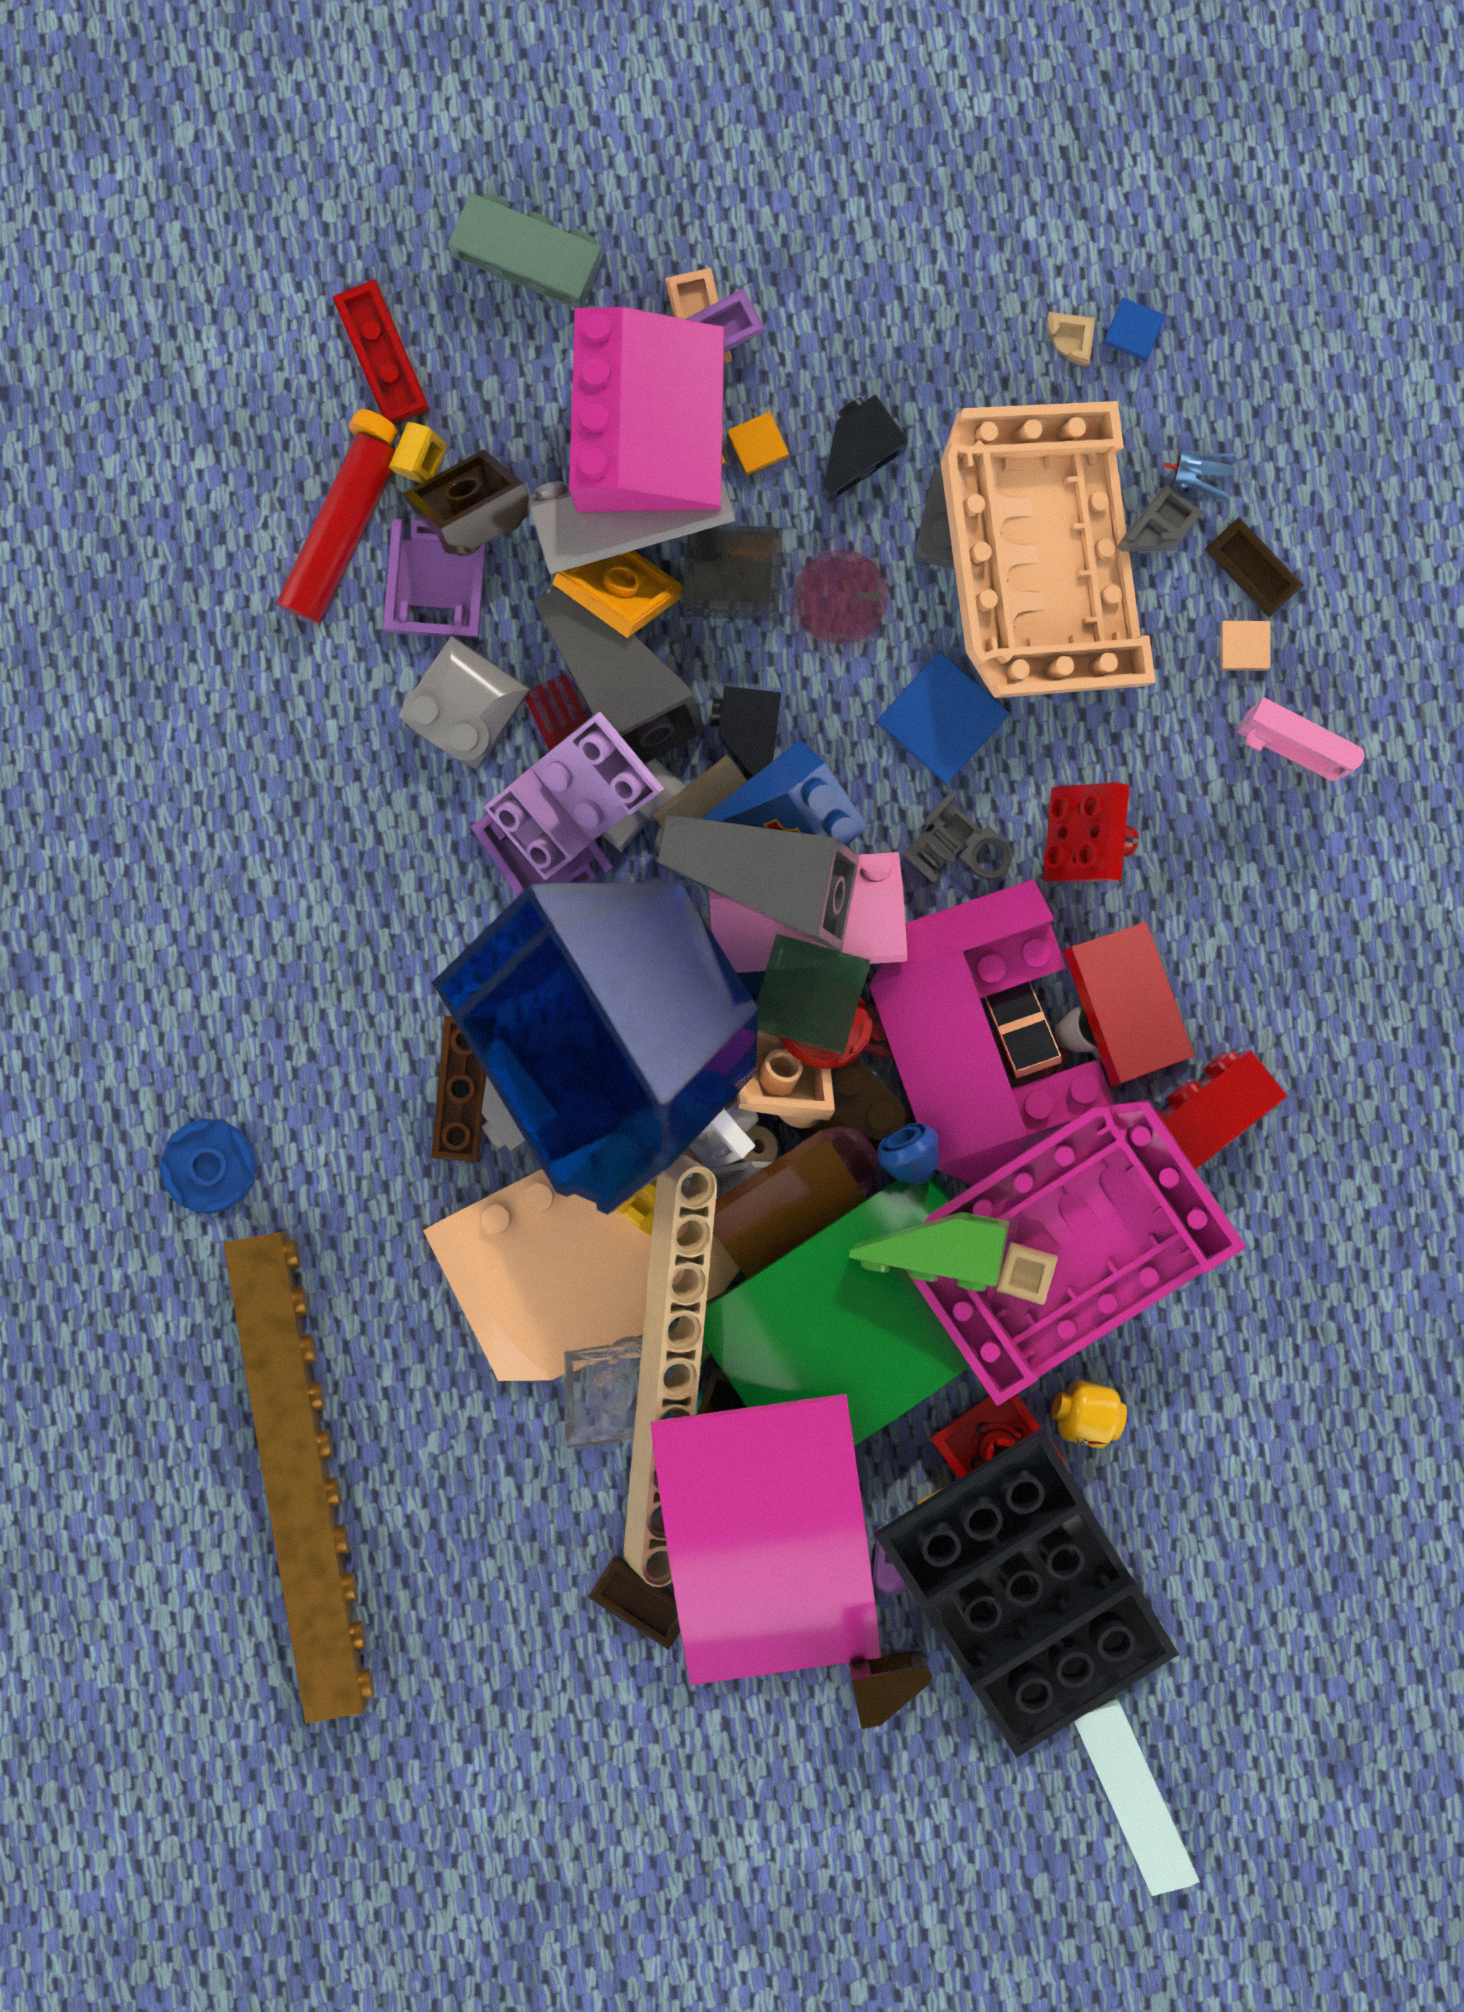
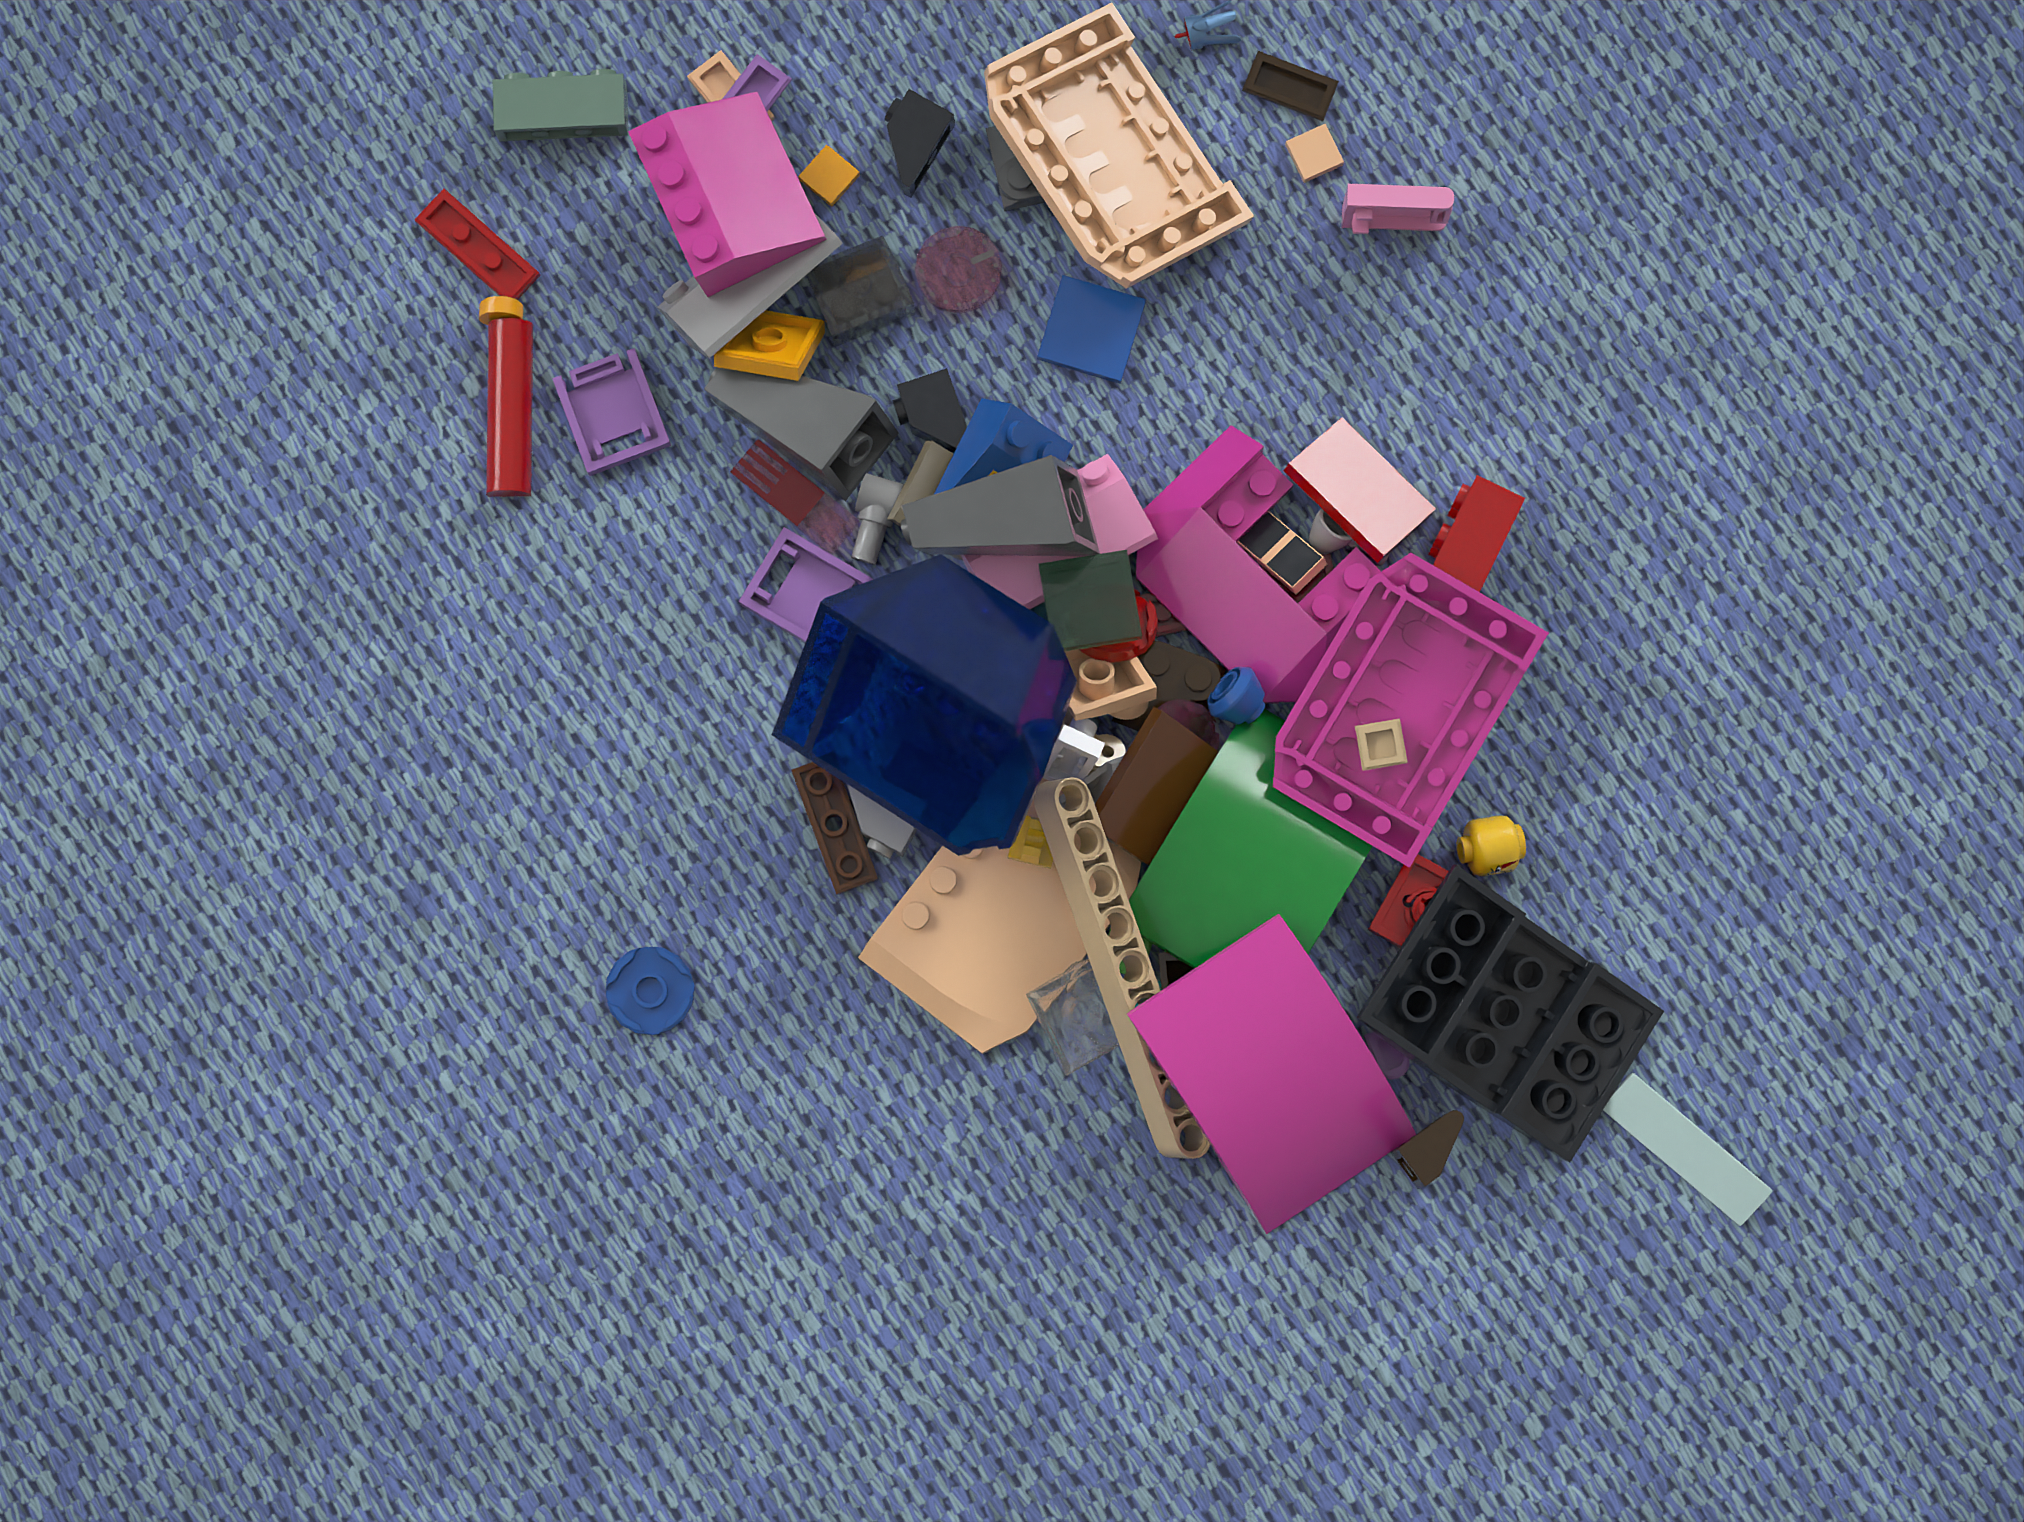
camera: 20 degrees left, 5 degrees down
(297, 1476) = (848, 1211): pearl gold brick -> none
(418, 453) = (548, 315): yellow brick -> none
(463, 703) = (684, 502): light grey slope -> none
(470, 503) = (613, 333): dark brown slope -> none
(573, 795) = (815, 528): lavender slope -> none
(637, 1603) = (1189, 1184): dark brown tile -> none
(950, 835) = (1144, 422): dark grey piece -> none
(953, 1247) = (1309, 747): bright green slope -> none
(1088, 833) = (1257, 365): red plate -> none
(1162, 523) = (1196, 85): dark grey tile -> none

